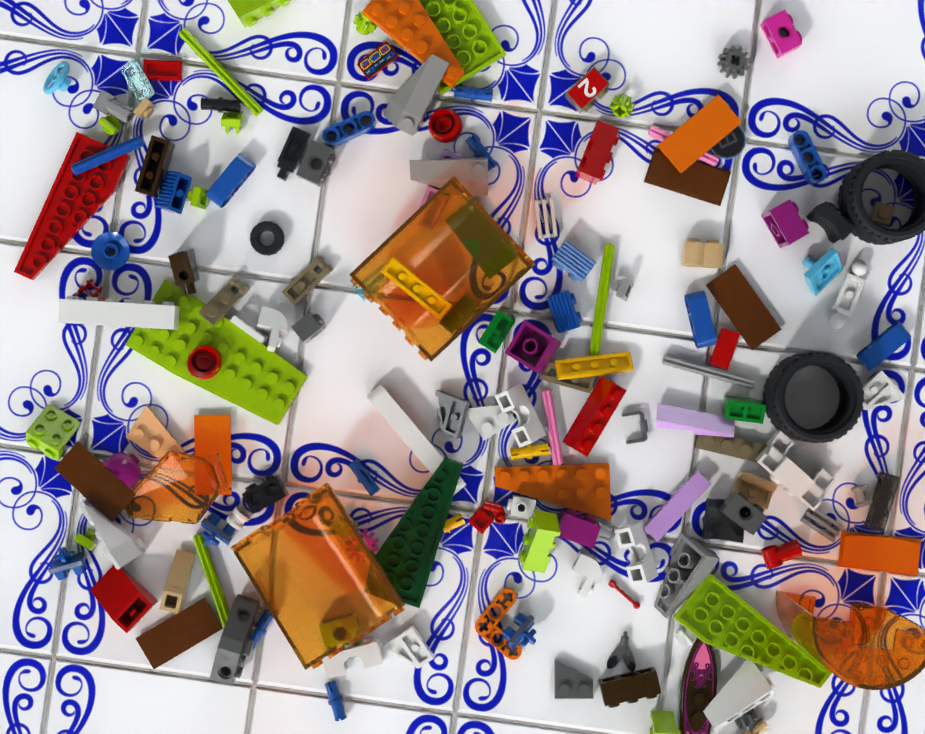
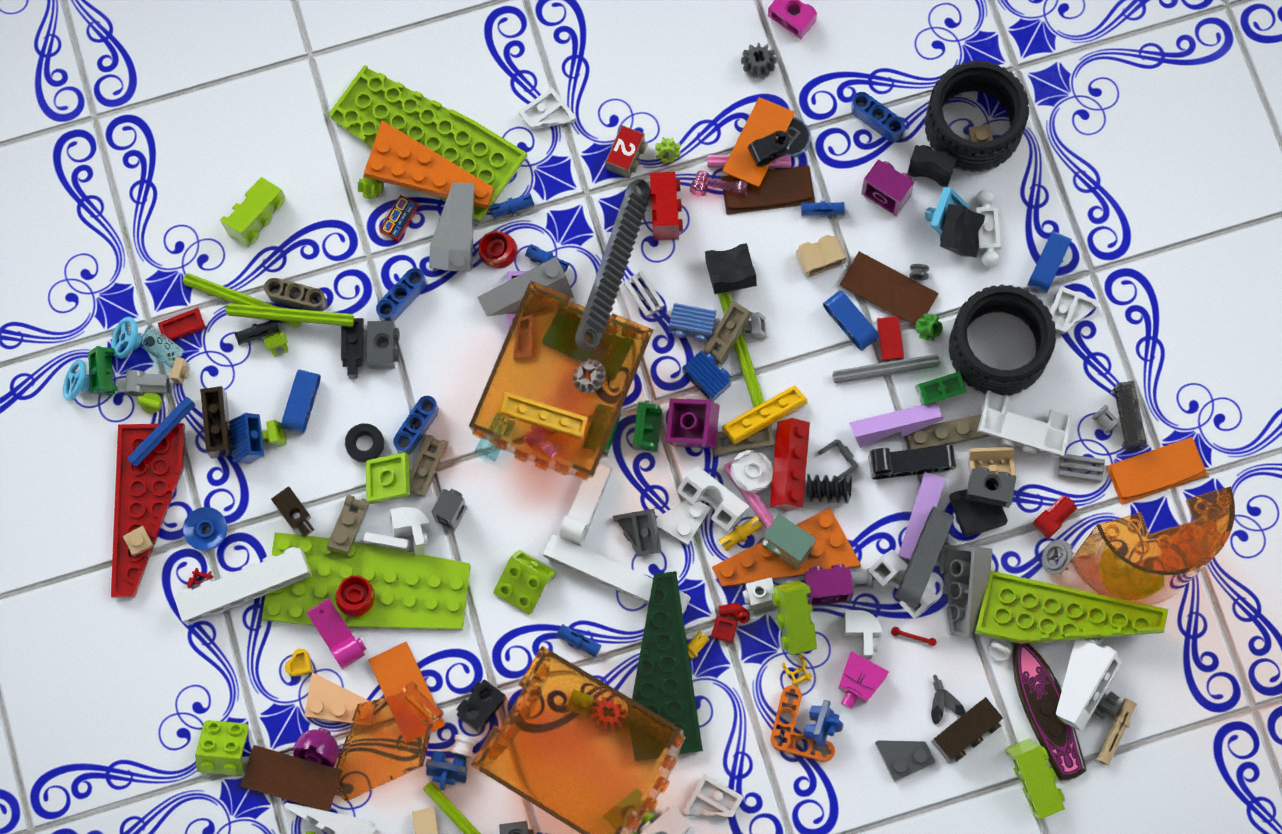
camera: 20 degrees left, 15 degrees down
(52, 237) = (138, 541): none -> tan plate
(81, 80) = (101, 371): none -> green hinge
(113, 61) = (128, 338): none -> medium azure piece
(140, 393) = (299, 664): none -> yellow tile
(177, 385) = (336, 633): none -> dark pink door
(252, 104) = (293, 315): none -> lime axle
(260, 80) = (287, 288): none -> dark tan beam
(271, 277) = (387, 478): none -> lime plate
(303, 245) = (416, 415): none -> blue beam
(343, 410) = (523, 581): none -> lime bracket
(403, 299) = (536, 436): none -> brick
(415, 376) = (577, 523): none -> white beam
(474, 275) = (597, 376): none -> light grey gear
(521, 579) = (789, 673): none -> yellow piece
(529, 189) = (613, 265): none -> dark grey gear
(539, 24) = (547, 111): none -> white wing
(562, 406) = (751, 471): none -> white tile
(562, 482) = (788, 541): none -> sand green piece
(566, 610) = (860, 680): none -> dark pink torso
(597, 284) = (728, 332): none -> dark tan plate
(615, 449) = (829, 488): none -> black piece
(624, 232) = (730, 269): none -> black brick
(637, 145) = (703, 182): none -> clear pink brick
(663, 544) = (924, 557): none -> dark grey beam
(691, 458) = (910, 462): none -> black beam
(702, 145) = (766, 149): none -> black piece
(723, 214) = (822, 208): none -> blue pin
(759, 355) = (929, 327): none -> bright green gear
(763, 580) = (1052, 552): none -> light grey gear
(775, 304) = (919, 272): none -> dark grey bush
(826, 289) = (961, 230): none -> black brick

